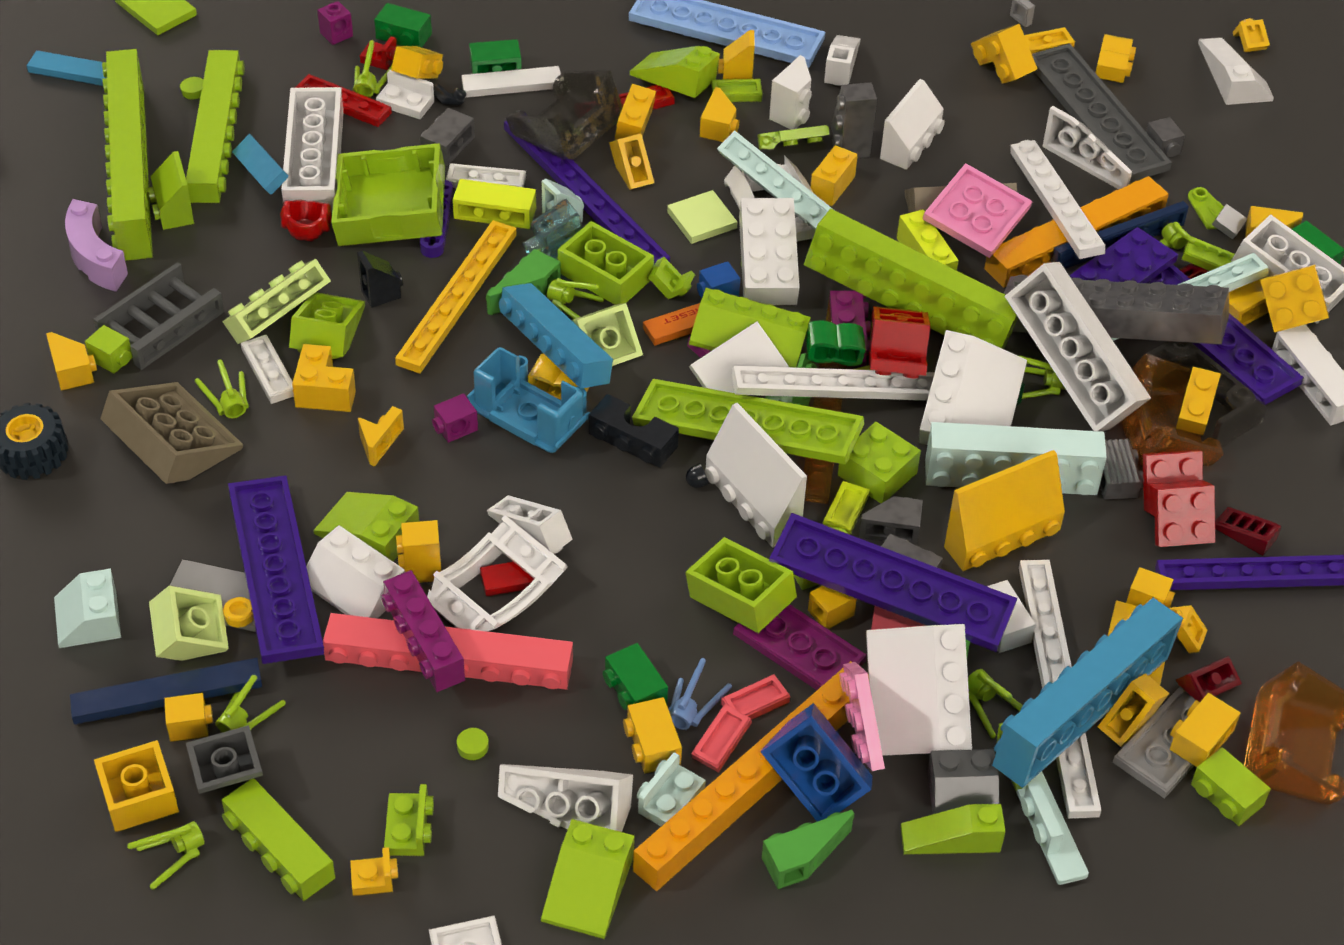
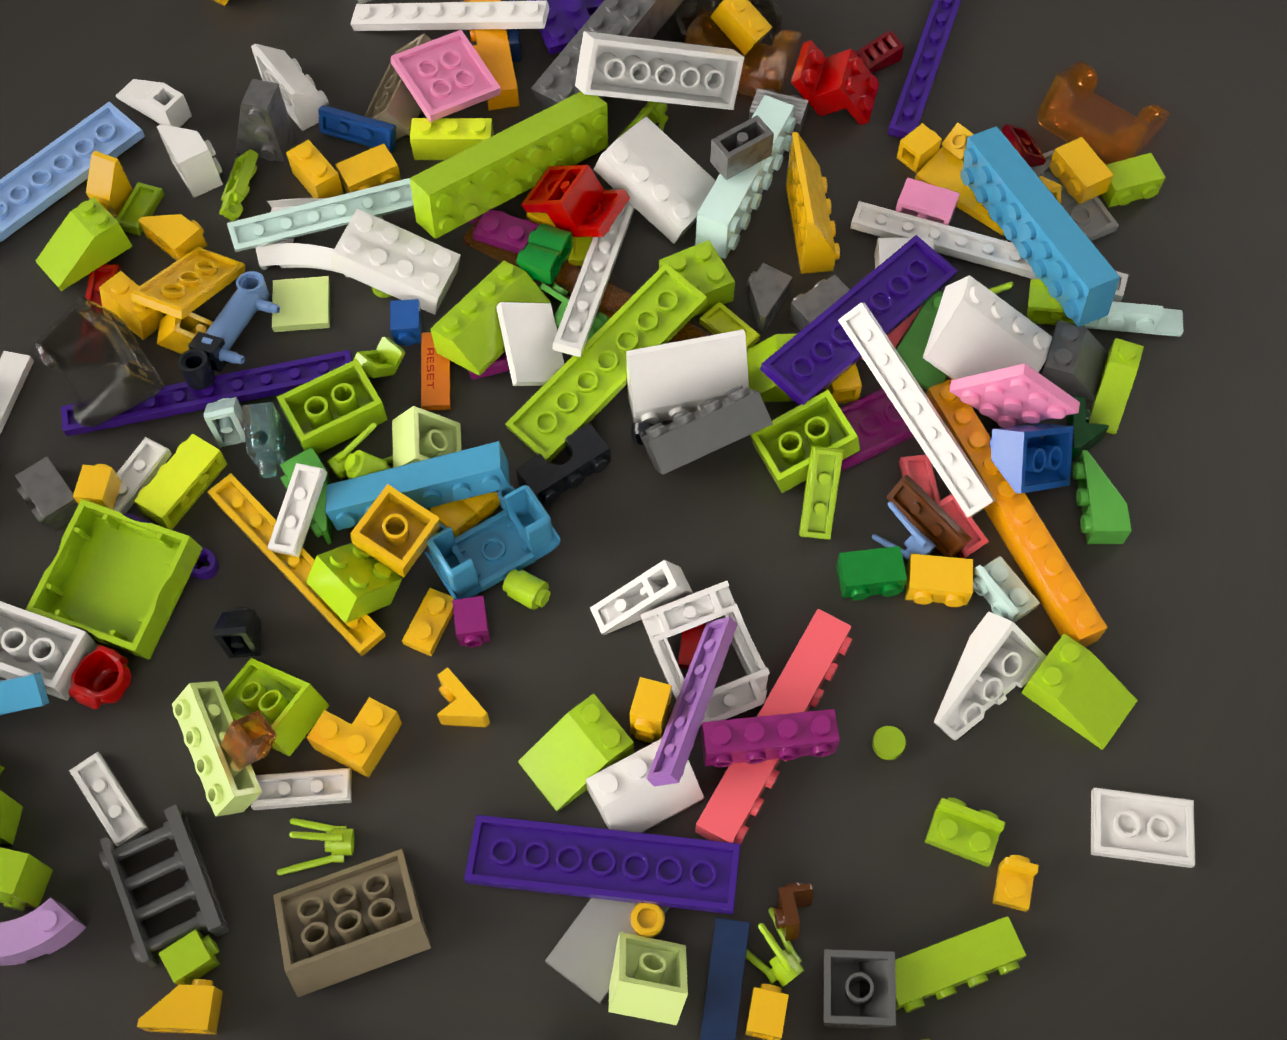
camera: 65 degrees left, 15 degrees up
(217, 264) = (108, 800): none -> white tile
(282, 305) = (248, 739): none -> clear orange brick
(284, 705) = (786, 914): none -> reddish brown bracket
(424, 569) = (692, 703): none -> medium lavender plate
(435, 393) = (429, 622): none -> yellow plate
(452, 327) = (352, 582): none -> lime brick
(461, 156) = (98, 485): none -> yellow brick
(496, 322) = (395, 530): none -> yellow brick
(497, 271) = (297, 510): none -> white tile
(502, 444) = (526, 589): none -> lime brick
(563, 299) = (363, 463): none -> lime brick
(618, 172) = (212, 349): none -> medium blue piece
(673, 136) = (188, 282): none -> yellow tile
(692, 610) = (821, 492): none -> lime tile
(710, 502) = (705, 430): none -> dark grey brick
(713, 706) = (928, 517): none -> reddish brown tile
(810, 649) = (916, 410): none -> white plate
(858, 205) = (368, 169): none -> yellow brick
(878, 812) = (1084, 433): none -> dark green slope
(897, 185) = (356, 128): none -> blue tile
(1014, 420) = (741, 147): none -> flat silver brick
(1082, 616) = (927, 201): none -> bright pink brick

